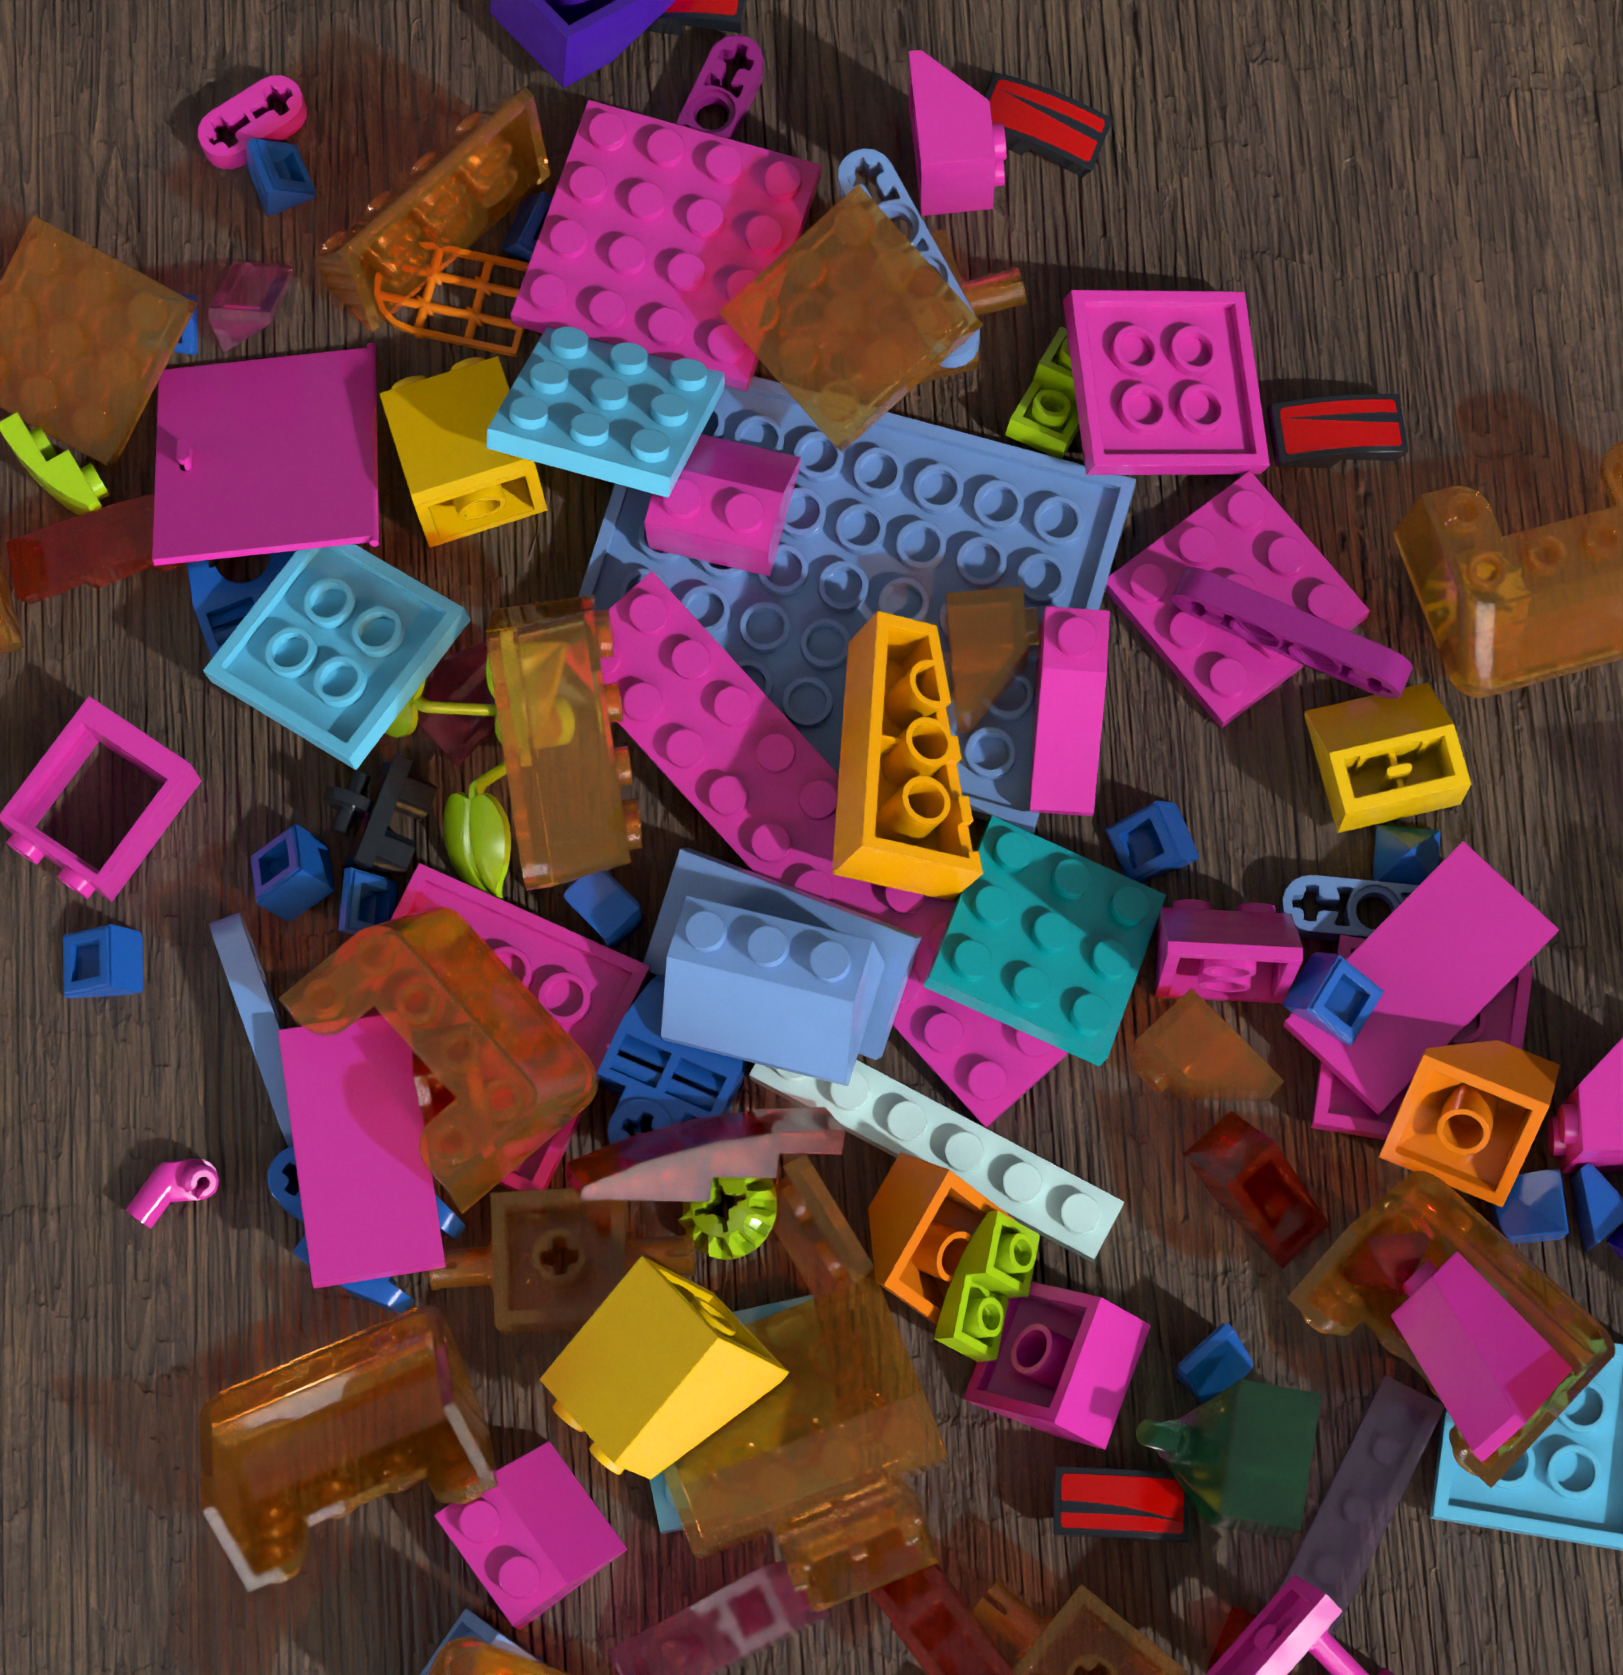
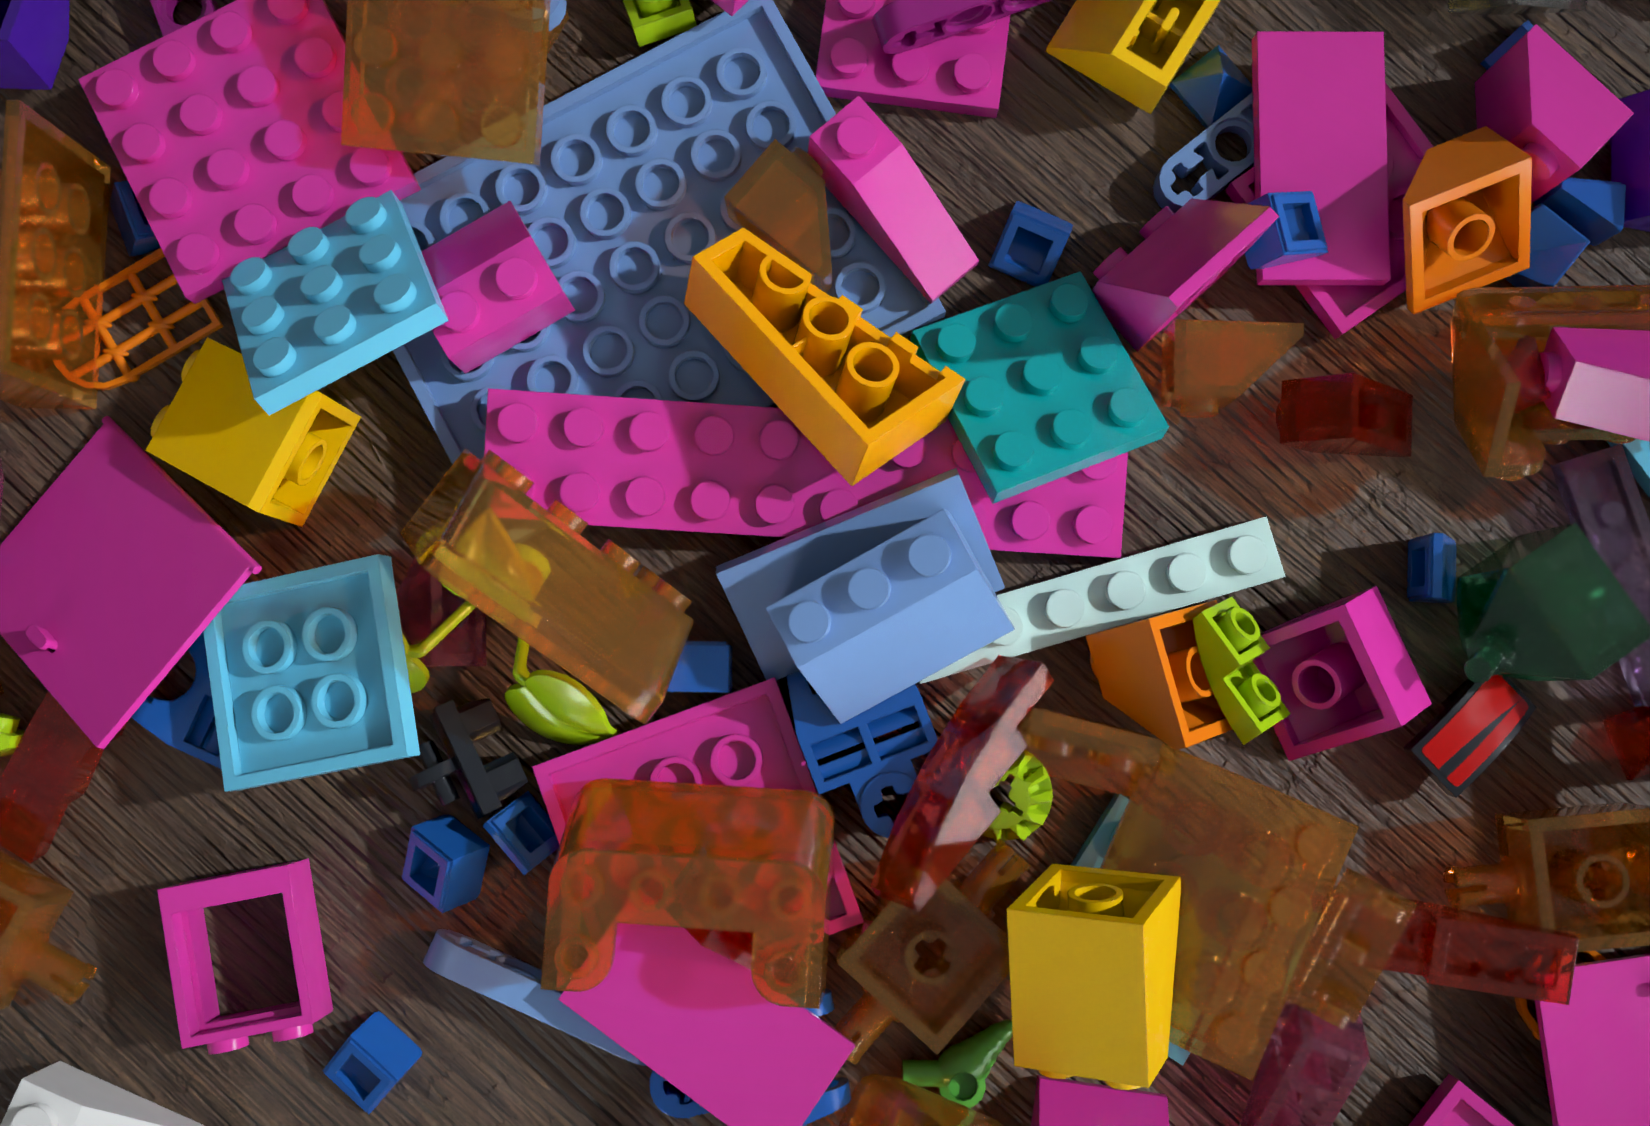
camera: 50 degrees left, 10 degrees up
(498, 1376) = (963, 1066): none -> bright green animal

